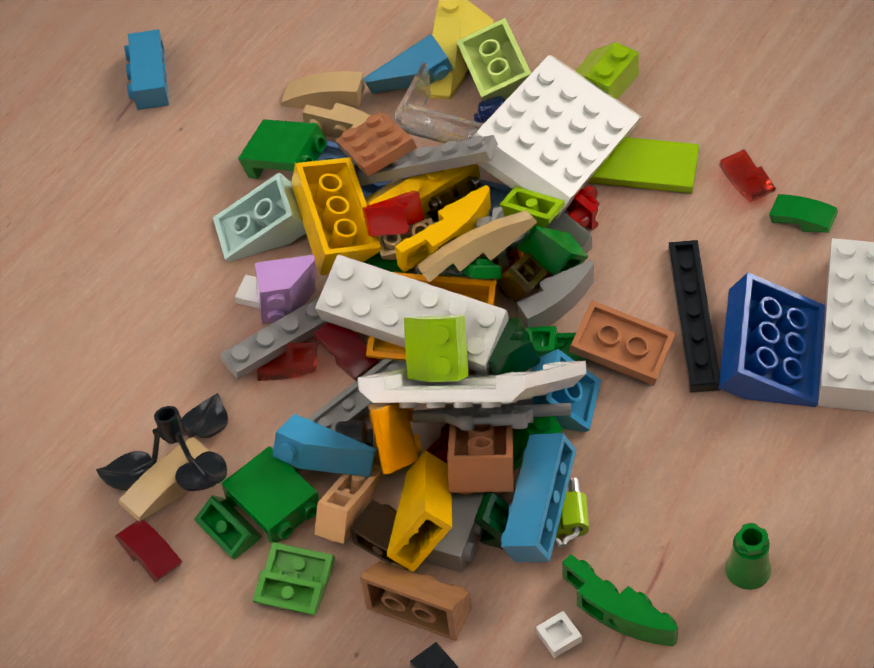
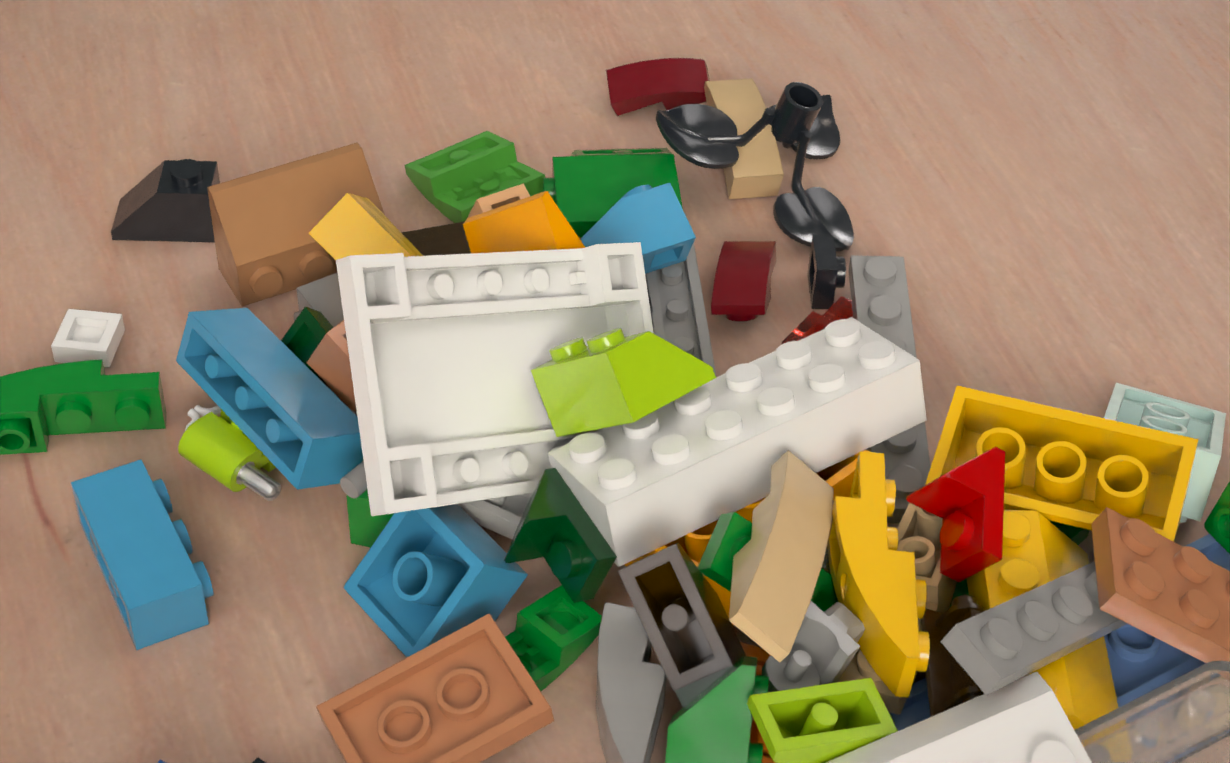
camera: 120 degrees right, 10 degrees down
(247, 292) = (1015, 376): white tile -> none
(248, 387) = (824, 271): none -> black plate
(272, 414) = (743, 279): none -> dark red slope
(284, 286) = (963, 345): lavender slope -> none
(647, 498) = (143, 553): none -> dark azure brick

